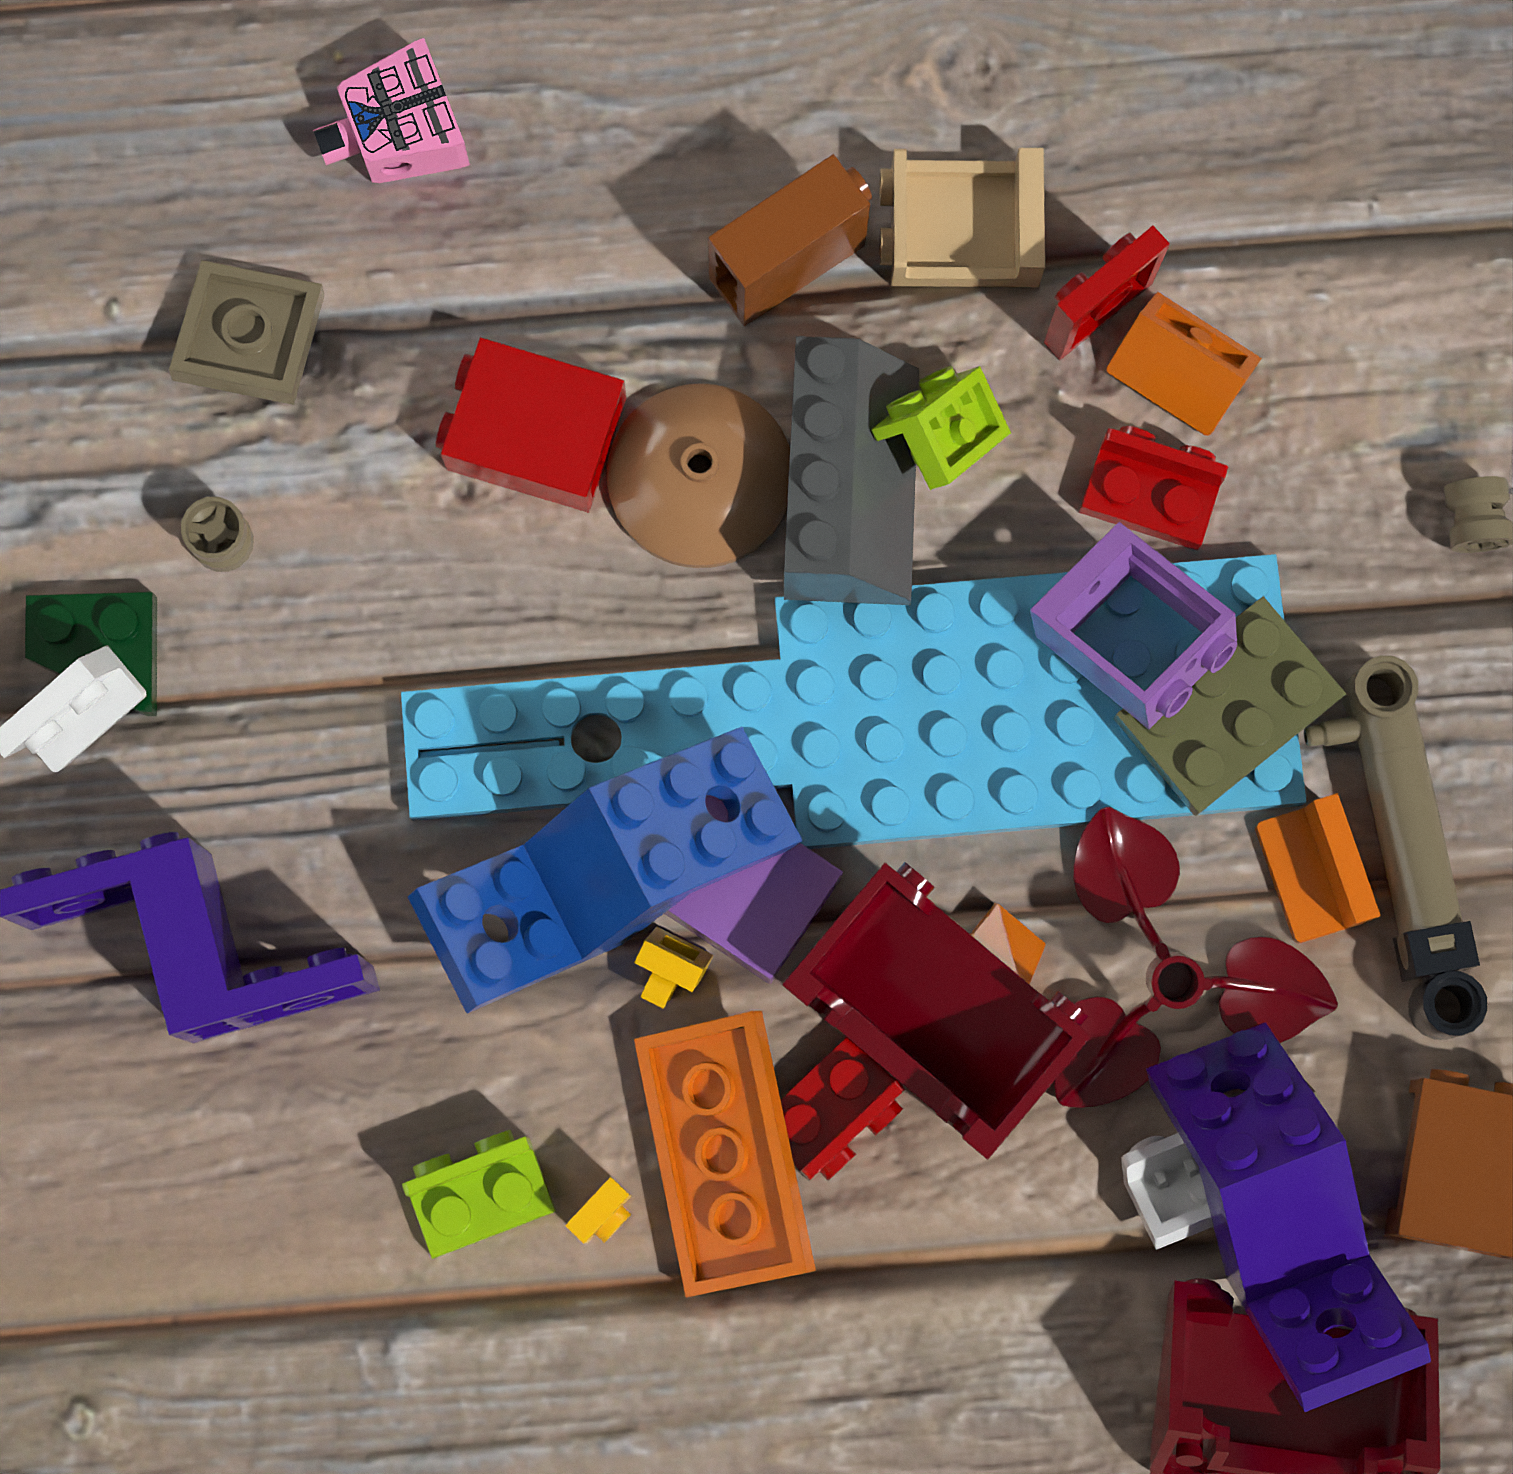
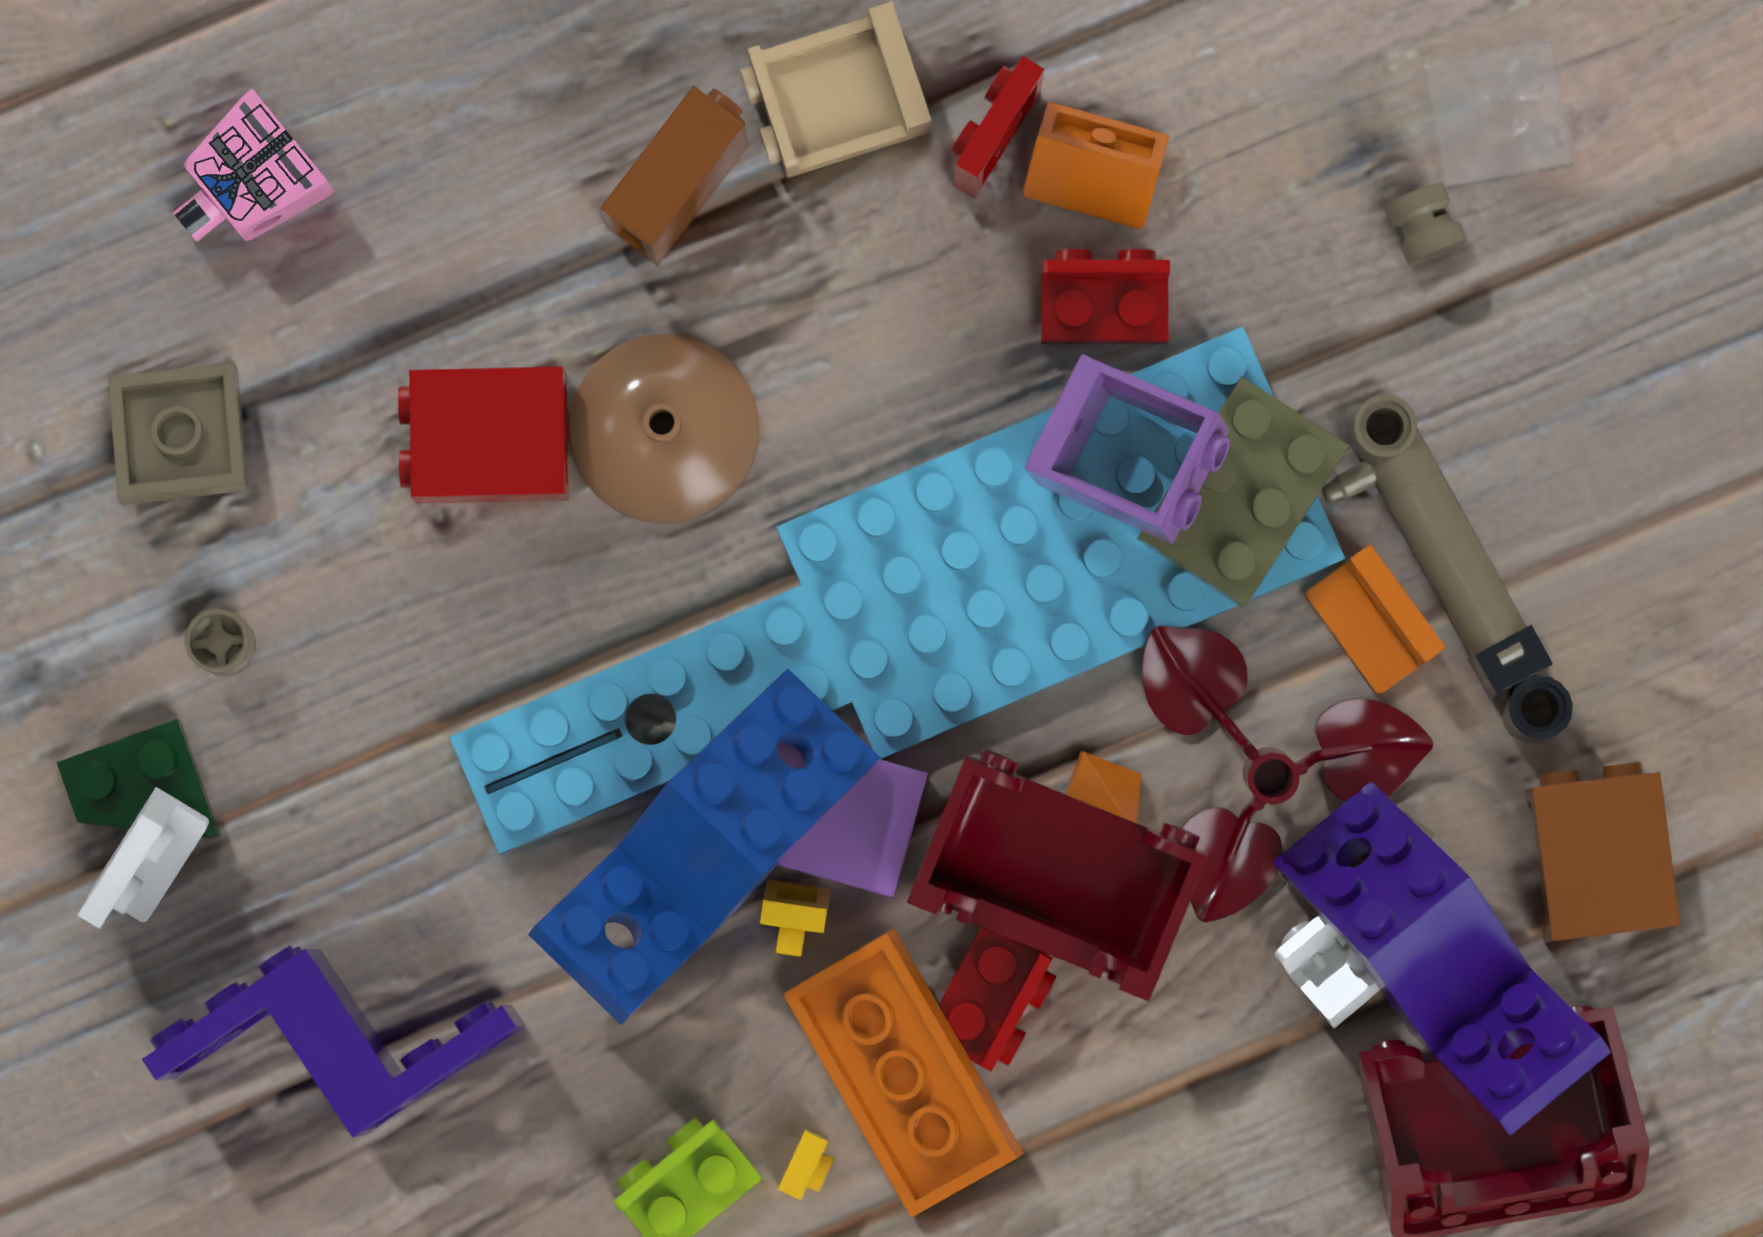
camera: 15 degrees left, 5 degrees up
(845, 489) = (811, 384): dark grey slope -> none
(946, 423) = (886, 306): lime bracket -> none

